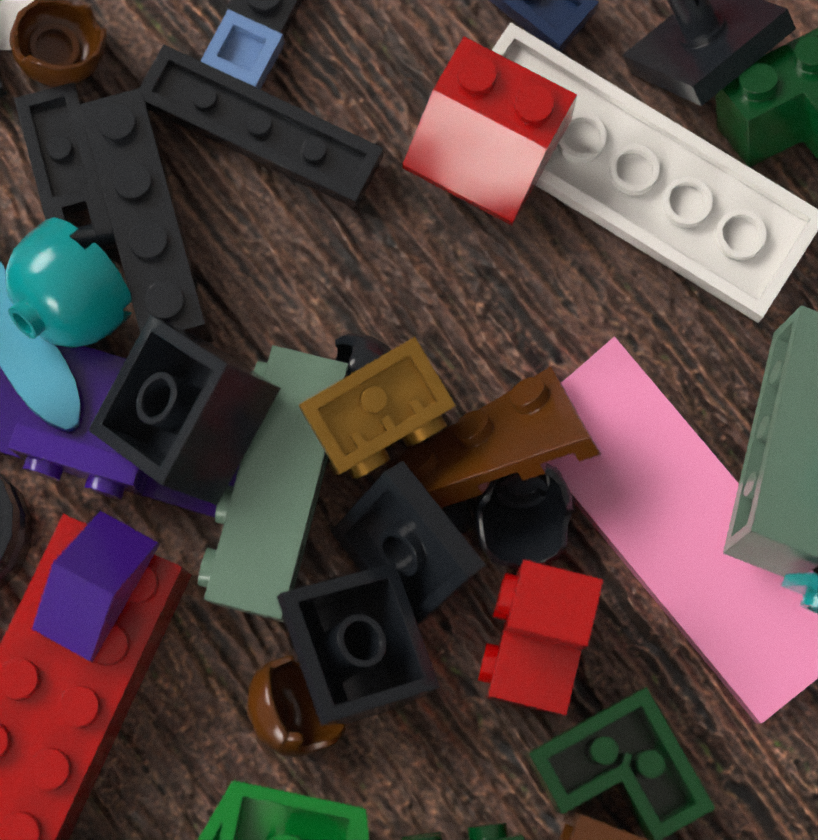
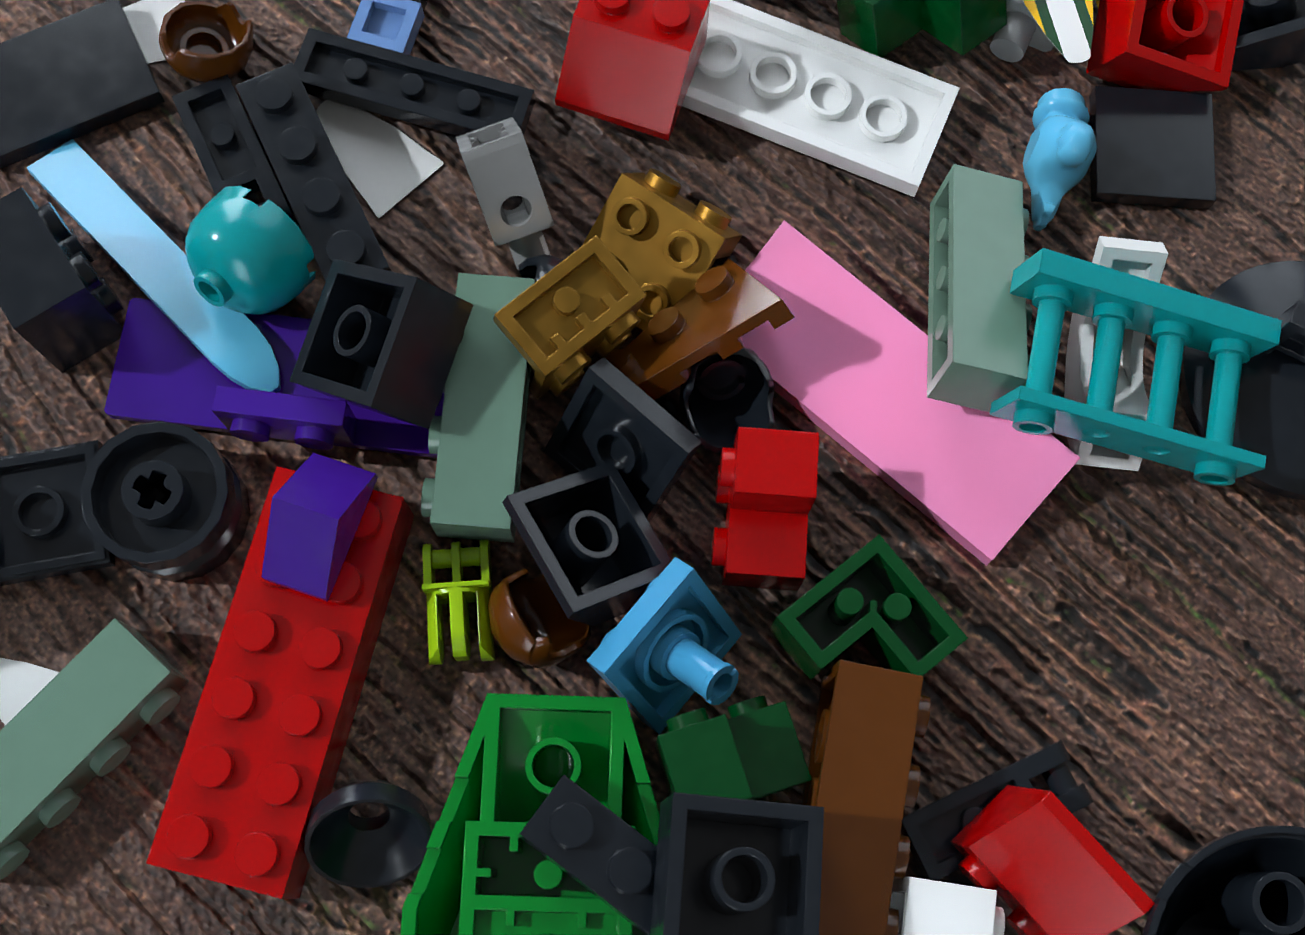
camera: 15 degrees left, 5 degrees down
(211, 187) = (376, 155): none -> white sticker
(224, 630) = (458, 596): none -> lime arm
(336, 254) = (502, 169): none -> light grey torso
(419, 764) = (669, 648): none -> dark azure plate
(482, 332) = (661, 237): none -> pearl gold bracket

